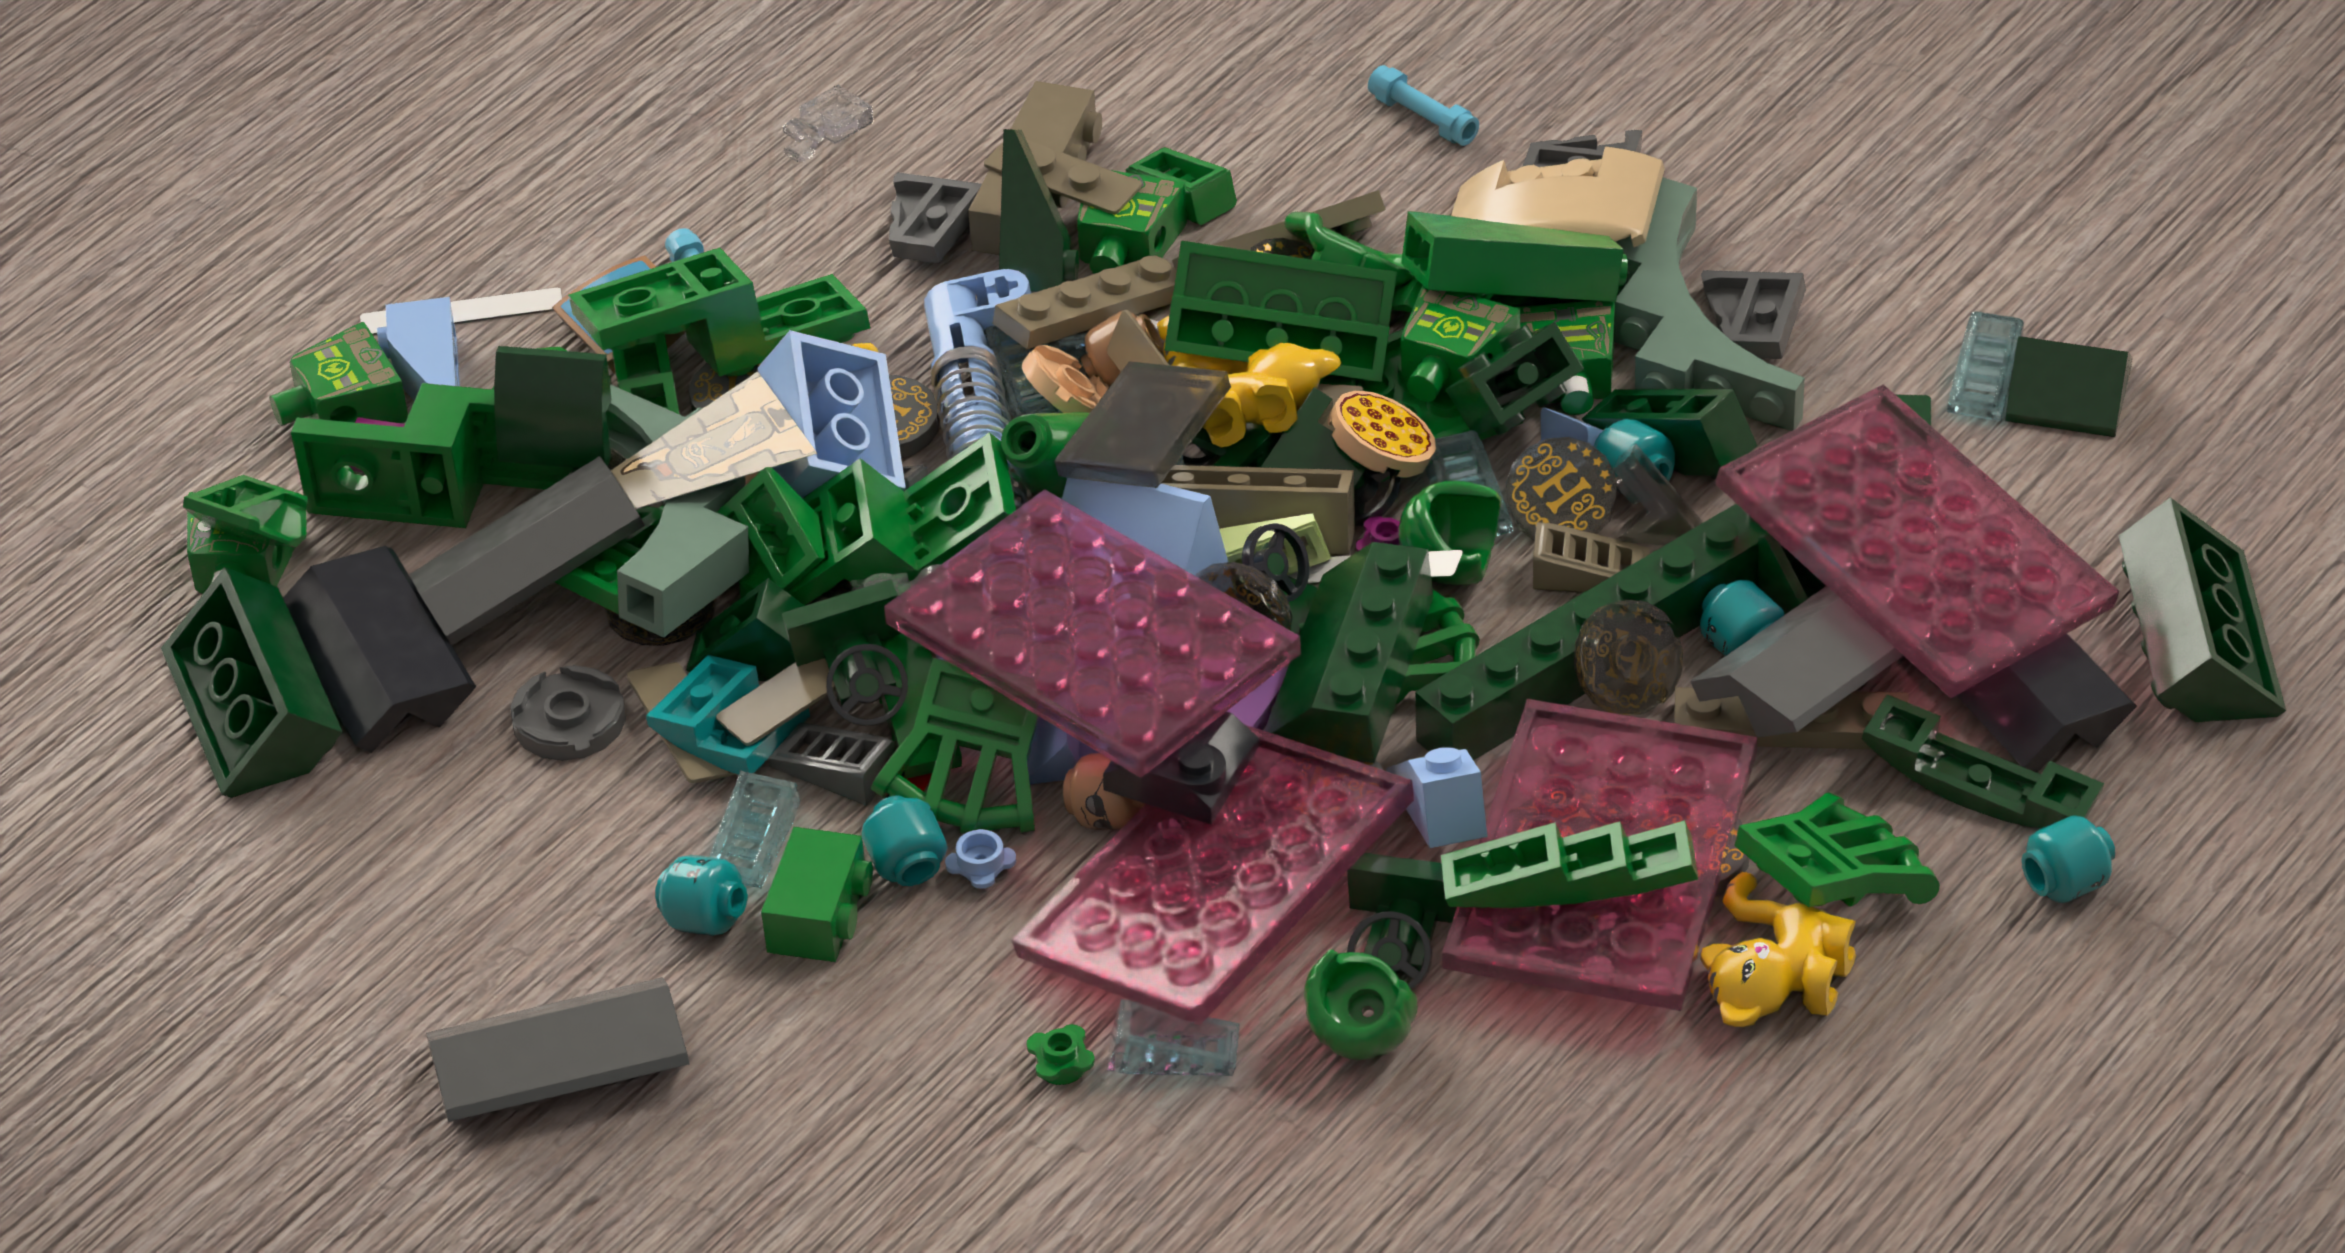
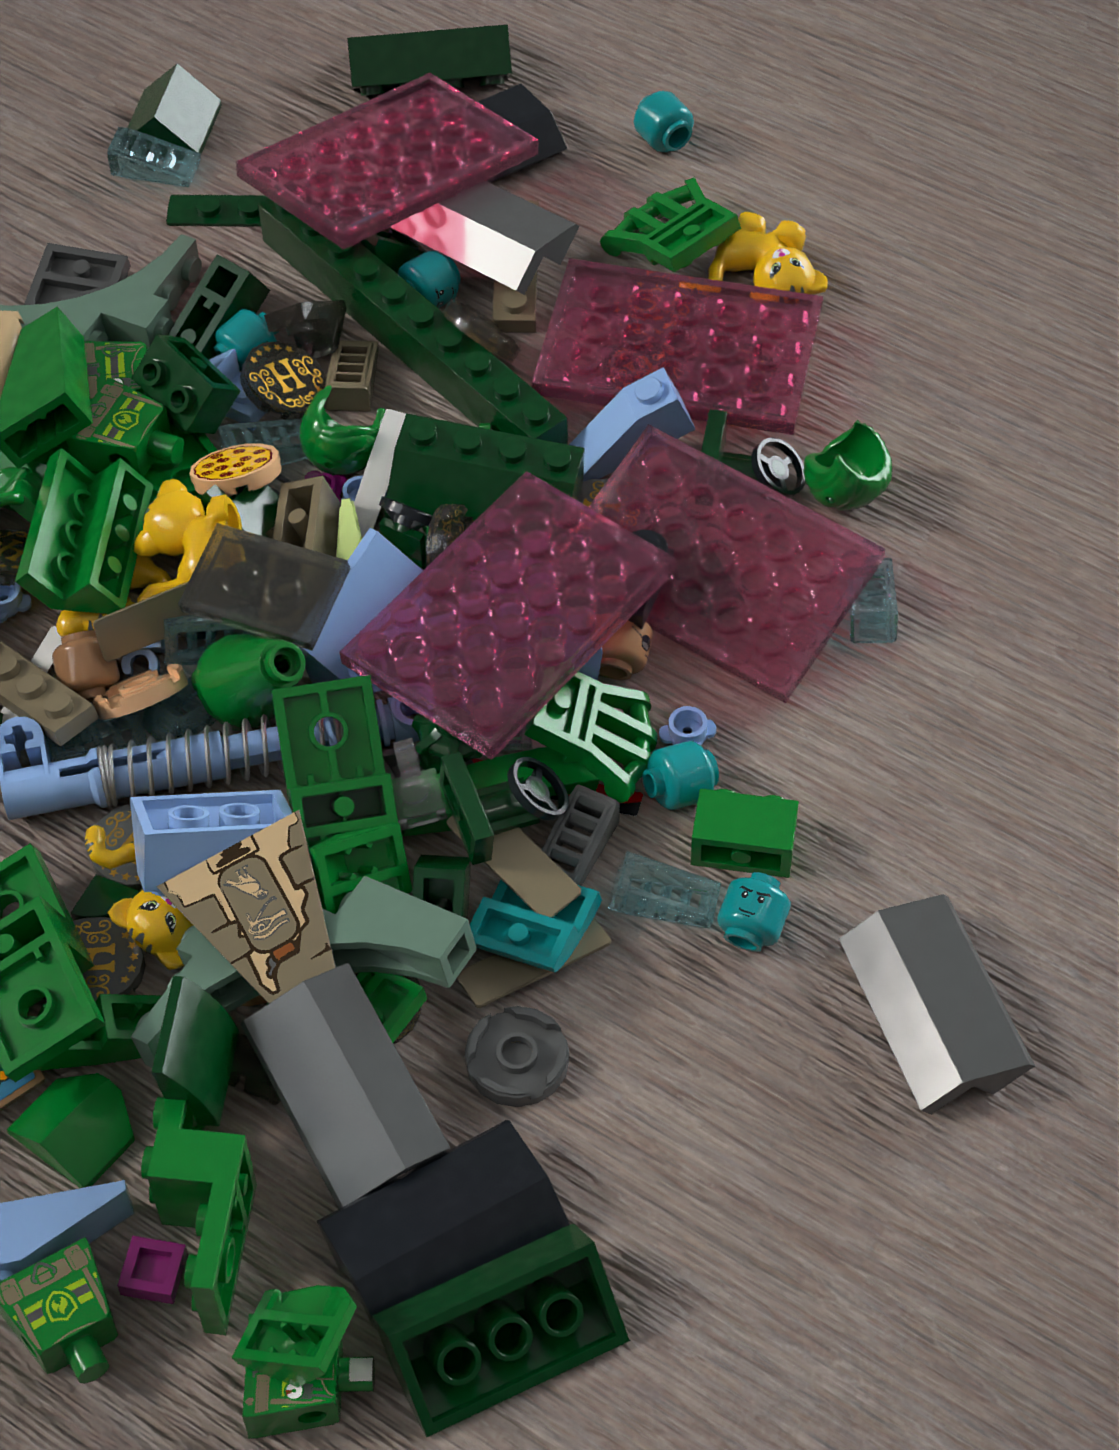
camera: 95 degrees left, 10 degrees up
(1061, 1054) = (892, 673): green plate -> none
(1552, 870) = (720, 344): green slope -> none
(1974, 778) = (582, 162): dark green slope -> none

